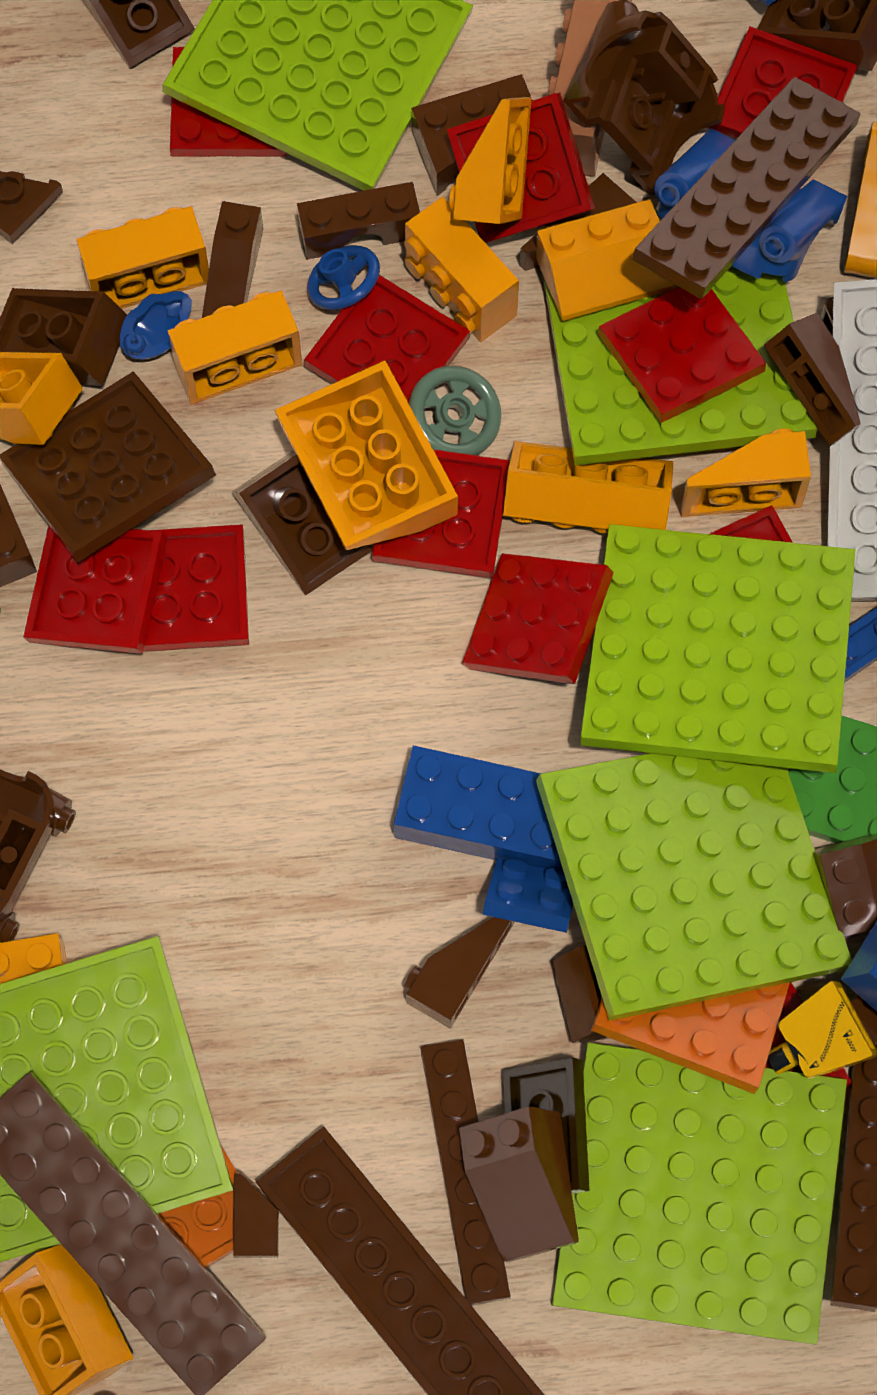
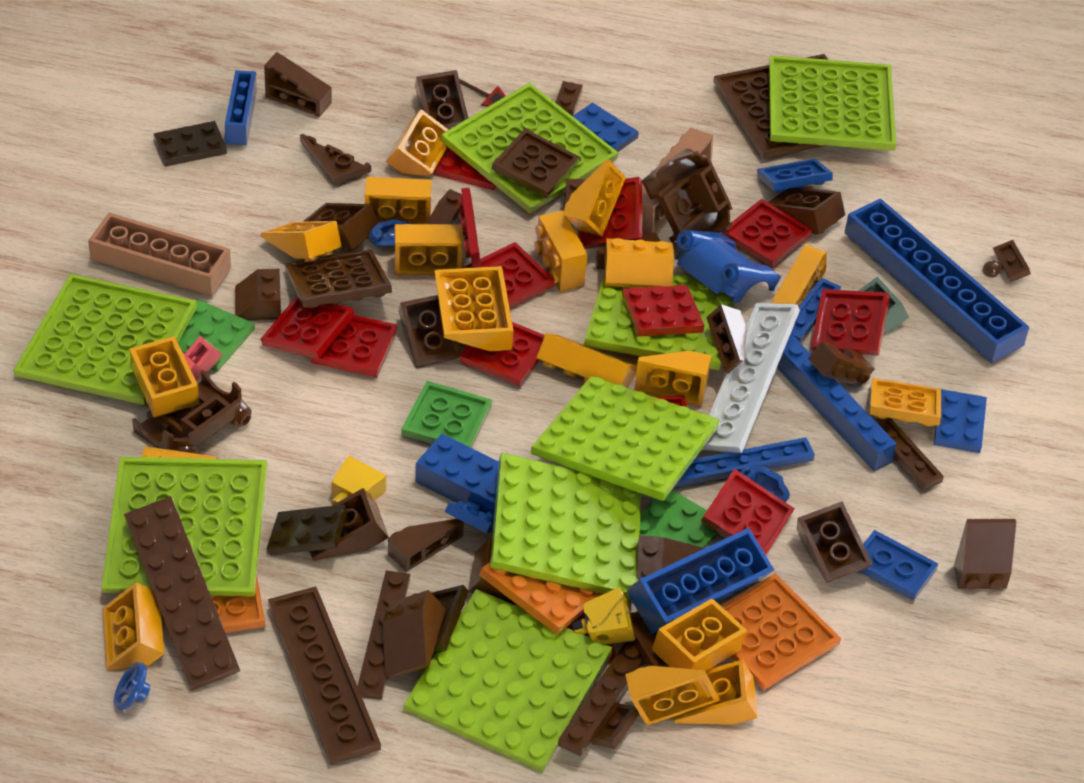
camera: 15 degrees right, 25 degrees down
(127, 112) = (418, 146): none -> light orange slope
(254, 1222) = (258, 613): reddish brown tile -> none
(265, 1019) = (307, 529): none -> dark brown plate
(301, 299) = (469, 227): none -> red wing
(306, 893) = (354, 476): none -> yellow torso
(322, 987) = (361, 529): none -> reddish brown slope
(335, 220) = (504, 214): reddish brown arch -> none
(338, 269) = (498, 236): blue piece -> none
(347, 91) = (535, 163): none -> reddish brown plate
(399, 690) = (448, 413): none -> bright green plate
(458, 380) = (539, 297): sand green plate -> none
(538, 618) = (534, 403): red plate -> none
(746, 188) = (725, 247): reddish brown plate -> none

